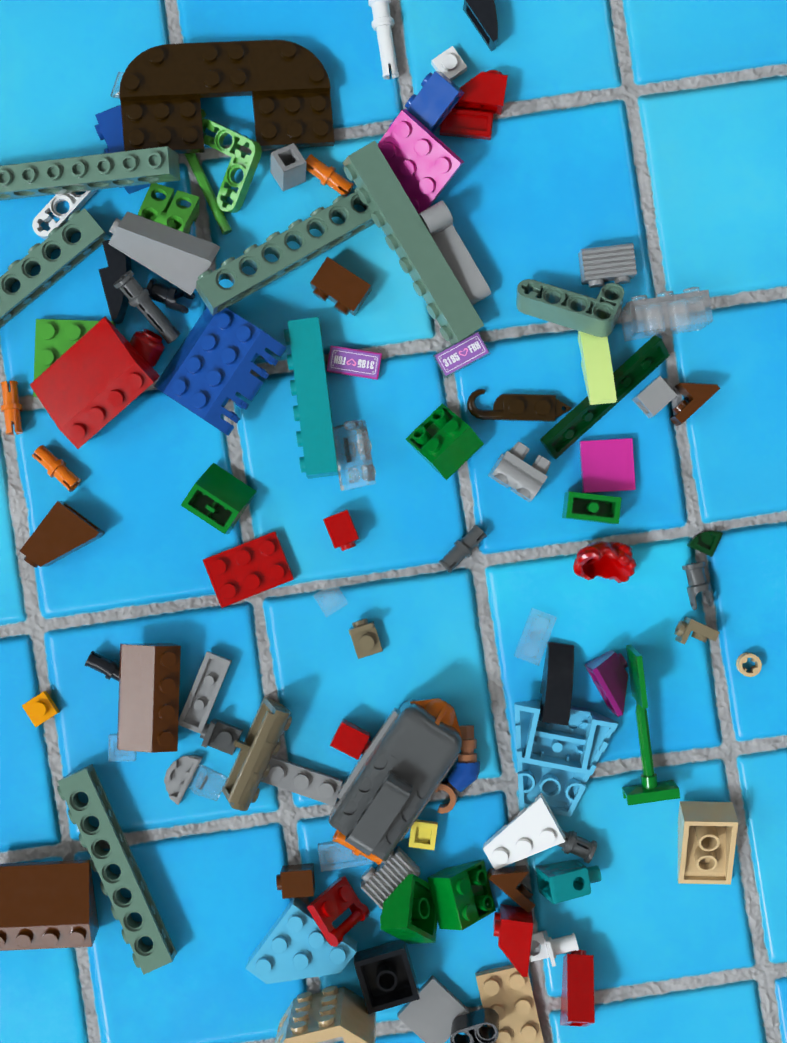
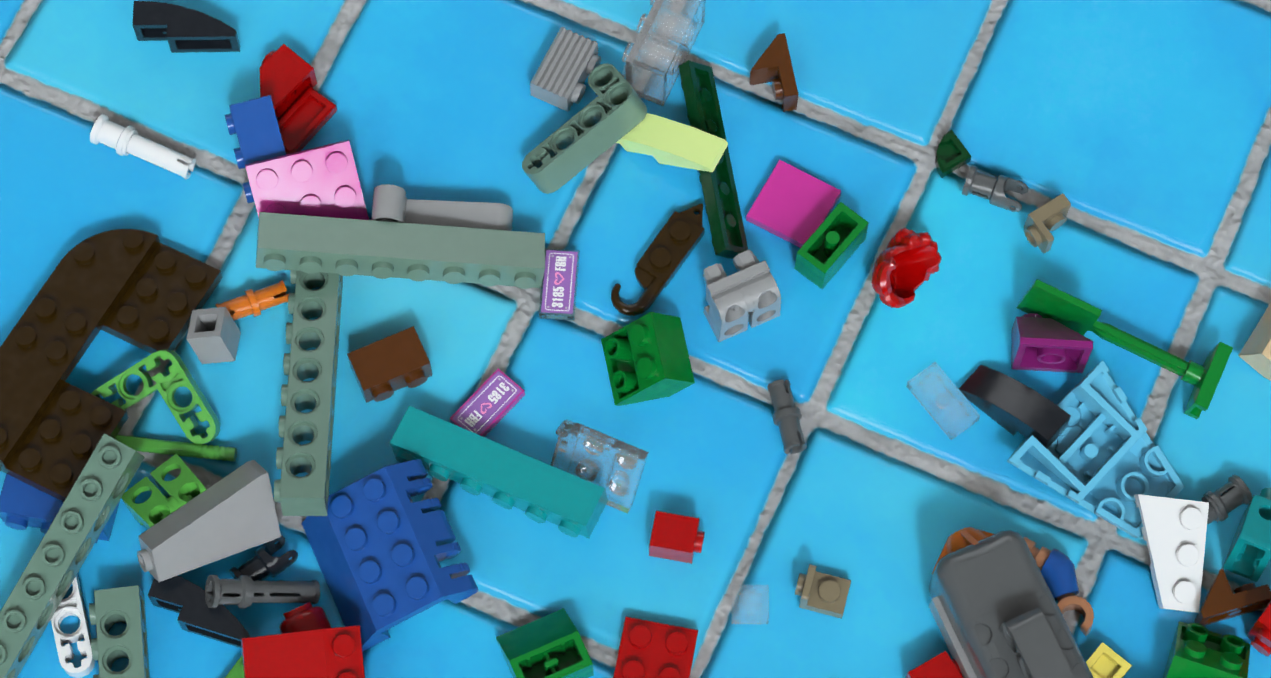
camera: 55 degrees left, 20 degrees down
(449, 63) = (218, 99): white plate -> none
(655, 396) = (748, 108): light grey brick -> none
(754, 670) = (1118, 180): tan bush -> none

